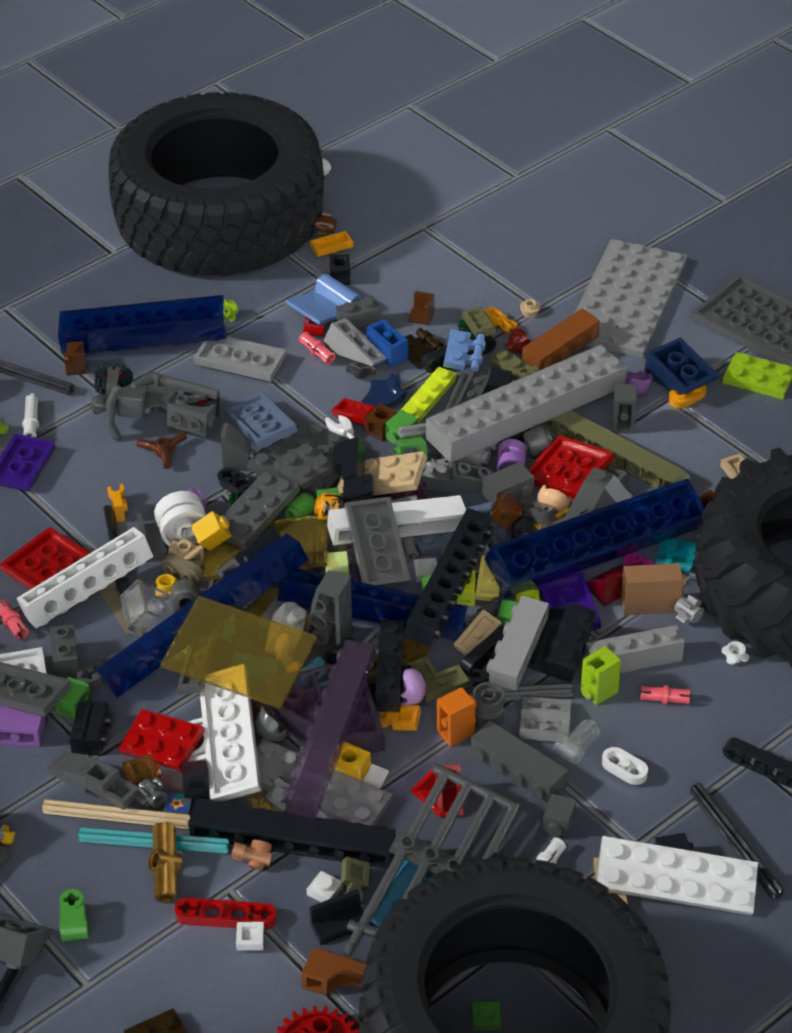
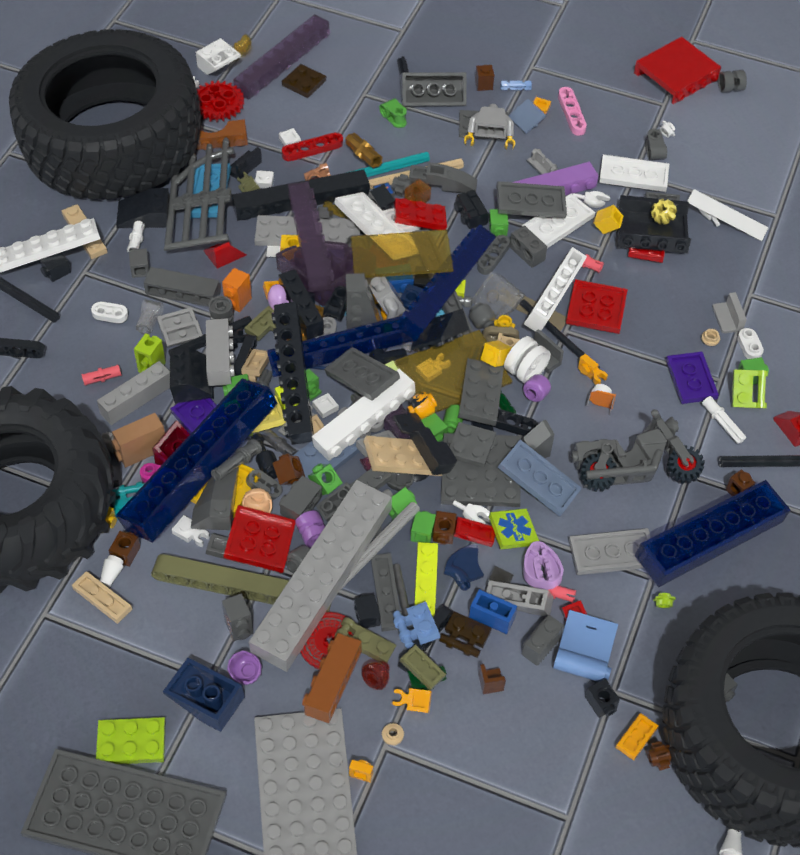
camera: 150 degrees right, 10 degrees up
(131, 474) = (602, 396): none -> orange piece
(163, 447) = (599, 431): copper piece -> none
(316, 401) = (513, 528): none -> lime tile
(318, 371) = (549, 560): none -> lavender piece
(473, 493) = (332, 479): none -> bright green brick
(571, 291) = (361, 770): none -> light orange plate

